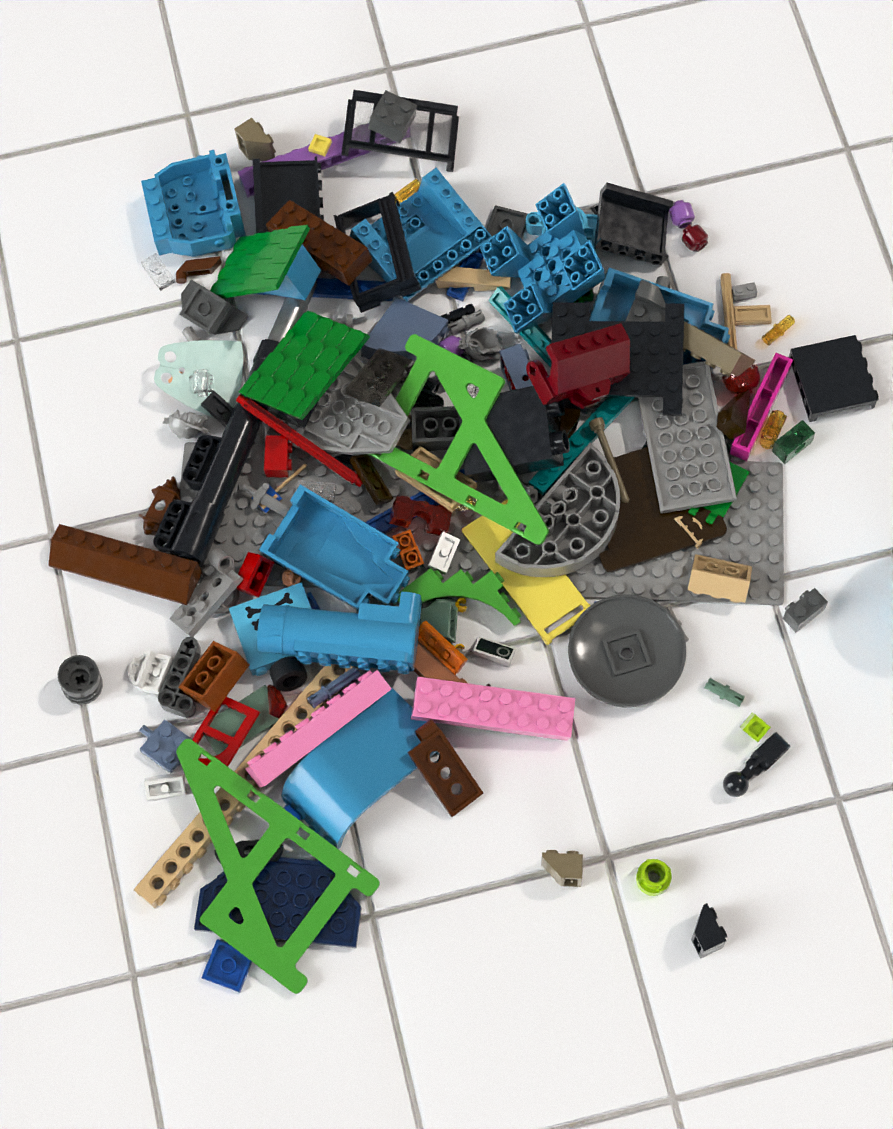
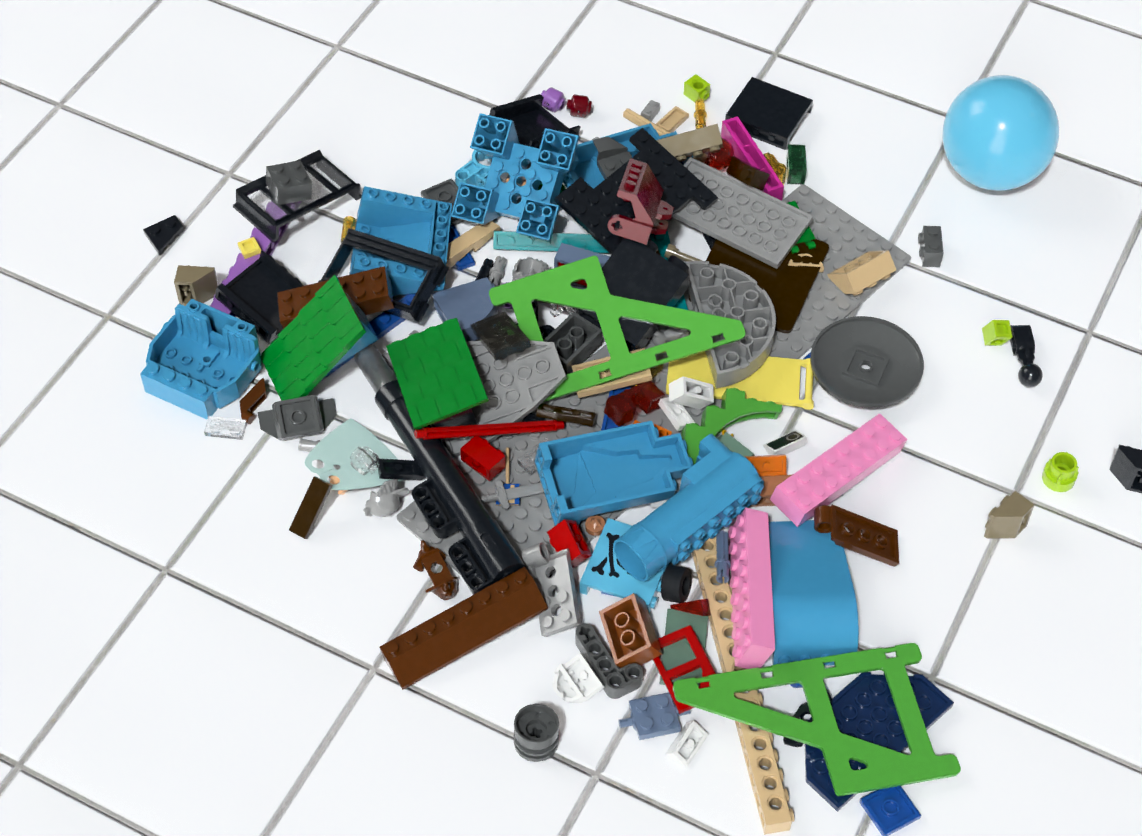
camera: 55 degrees left, 15 degrees down
(134, 383) = (310, 507): none -> dark brown tile
(290, 79) = (163, 233): none -> black wing
(464, 549) = (691, 393): none -> white brick
(724, 692) = (950, 334): sand green pin -> none
(805, 299) = (696, 88): none -> lime brick

